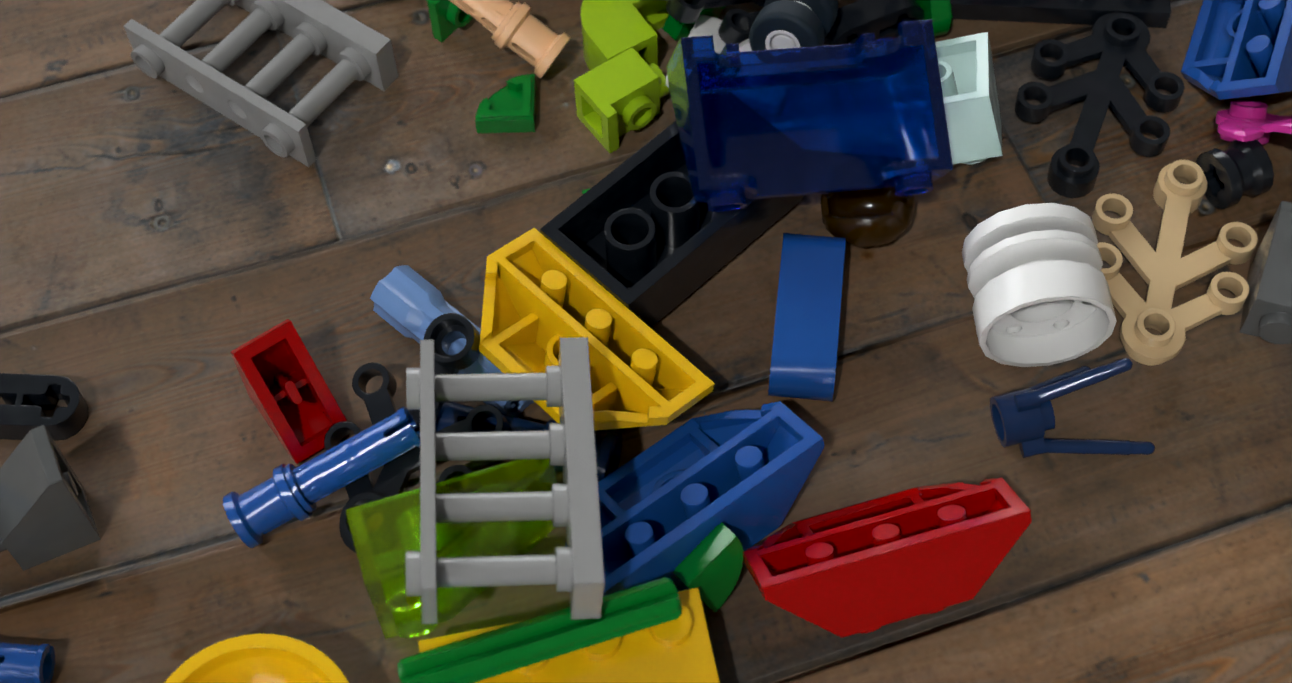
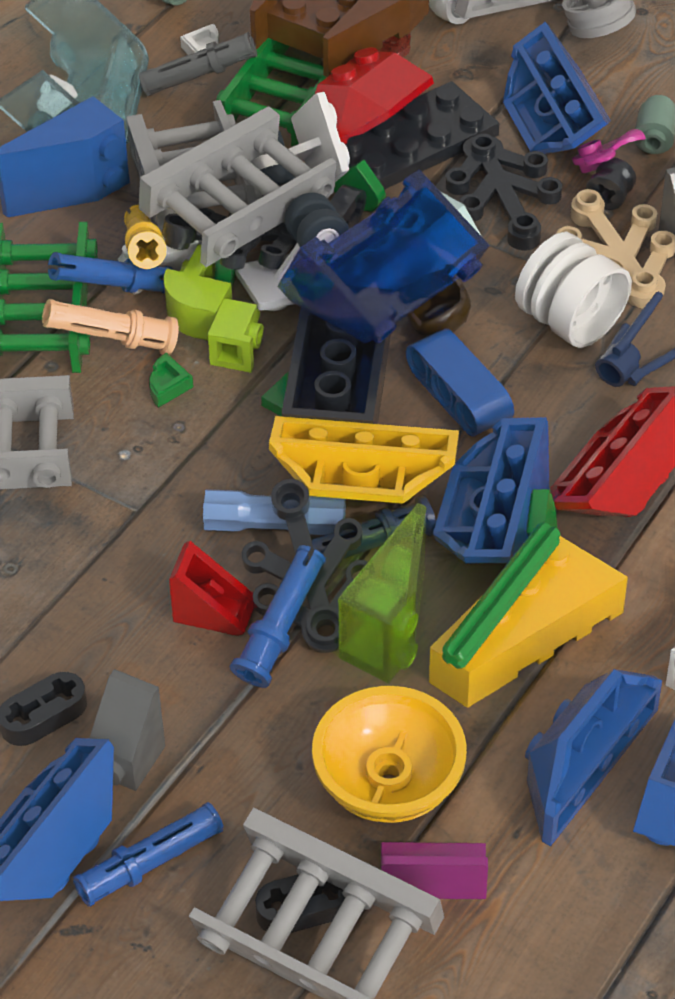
camera: 40 degrees left, 10 degrees down
(568, 505) = (426, 484): light grey fence -> none

